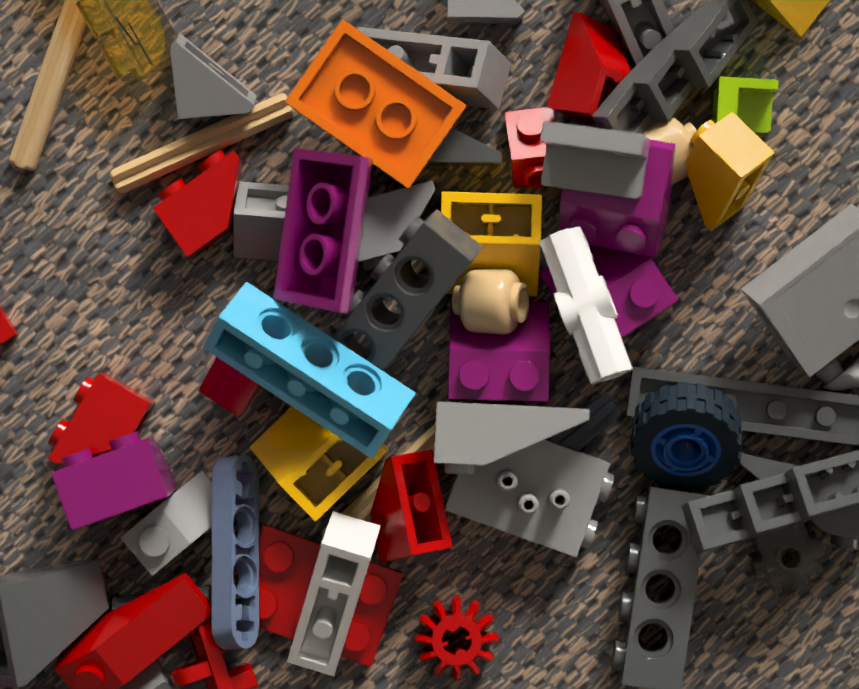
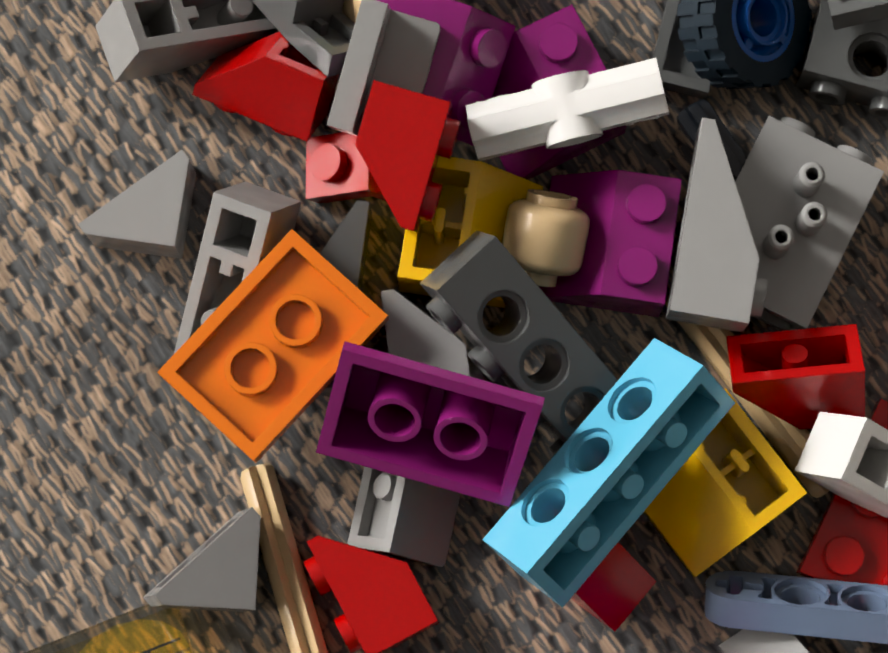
camera: 80 degrees left, 10 degrees down
(534, 180) = (401, 147): none -> red slope

